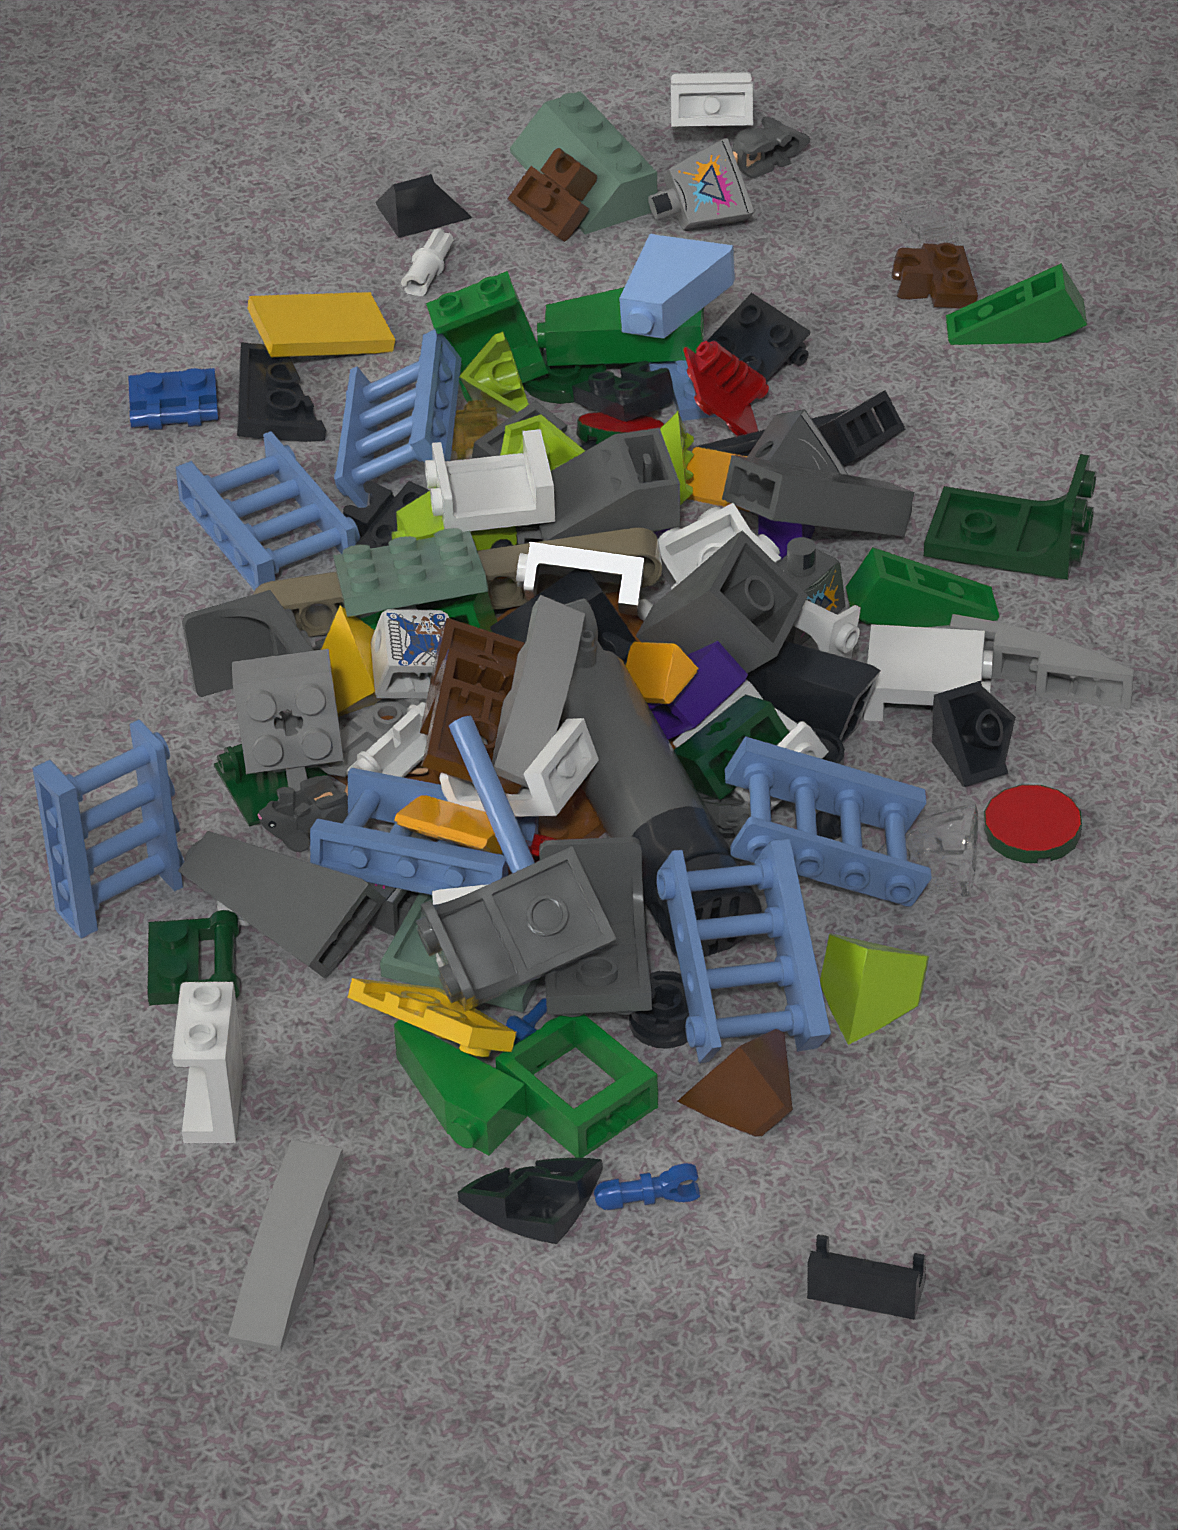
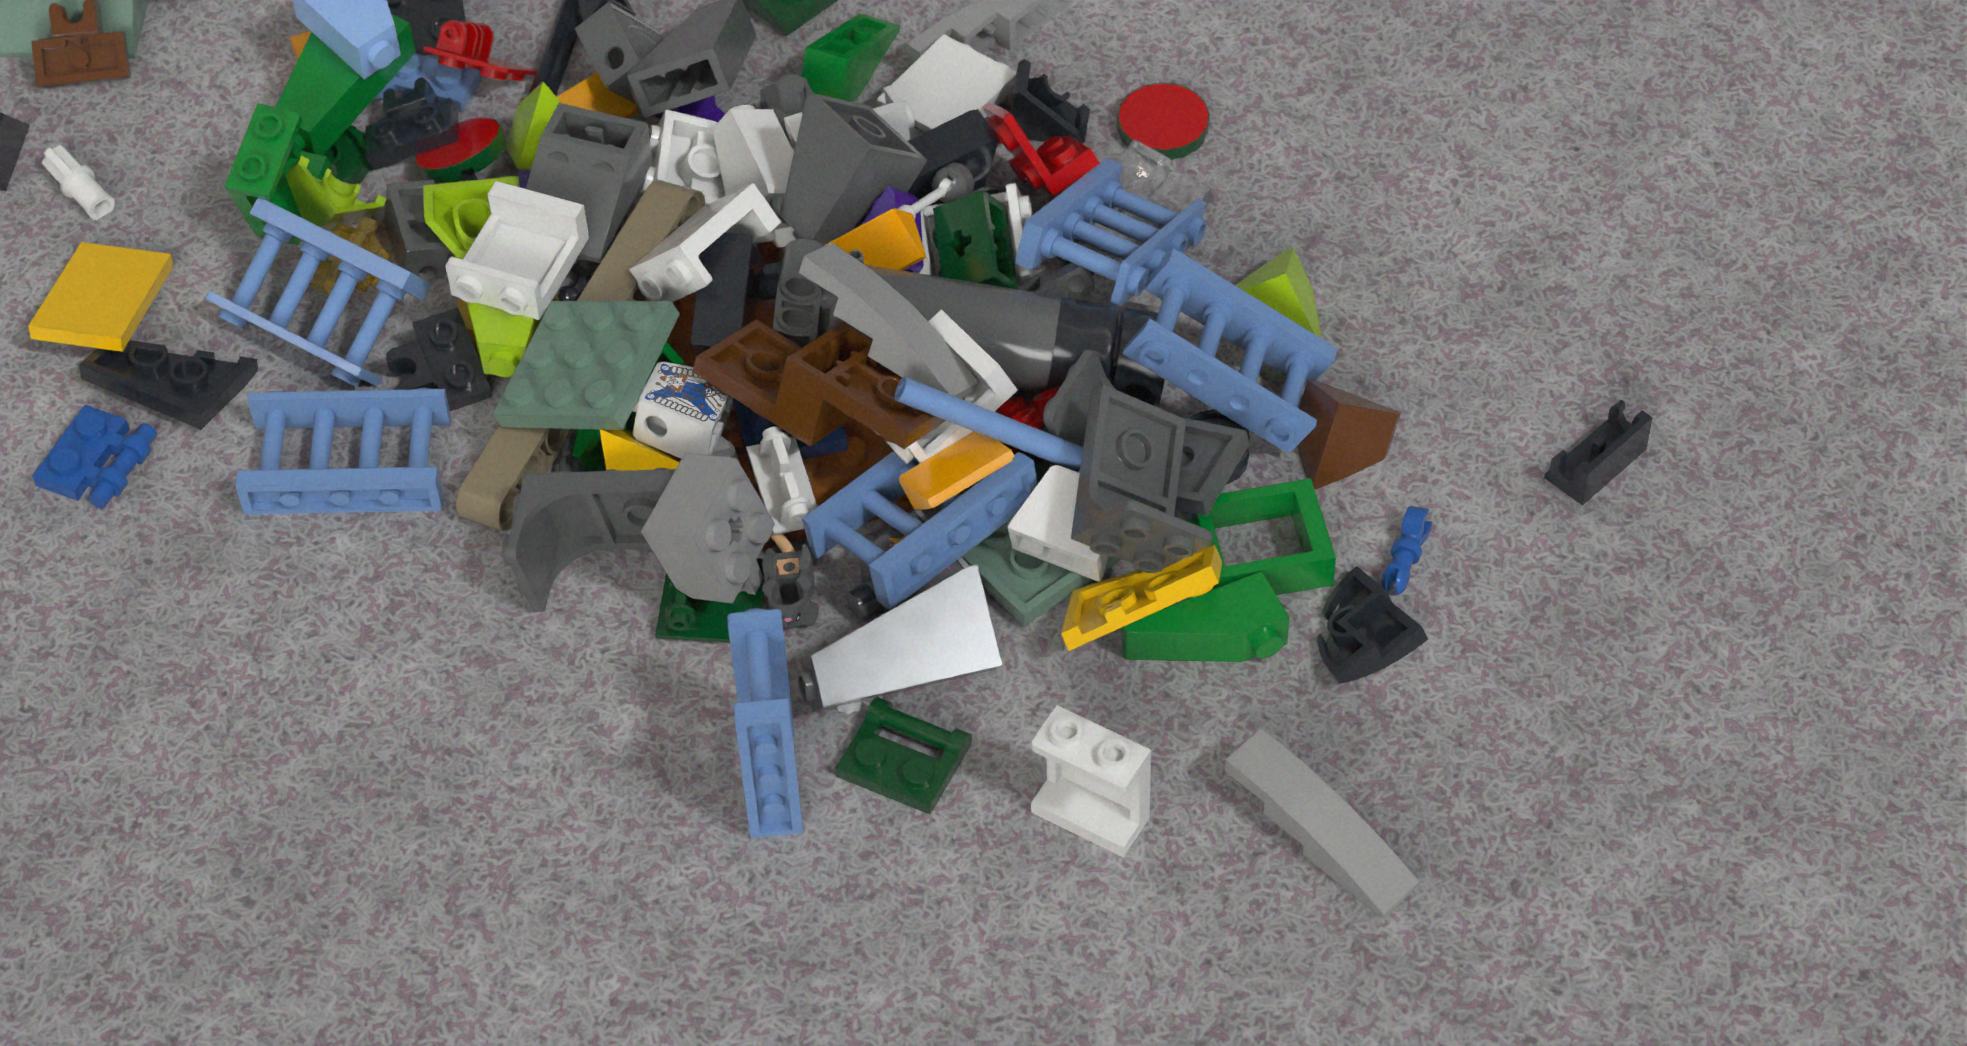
camera: 60 degrees left, 10 degrees up
(785, 693) = (945, 188): none -> dark grey hinge
(879, 731) = (1052, 165): none -> red bracket

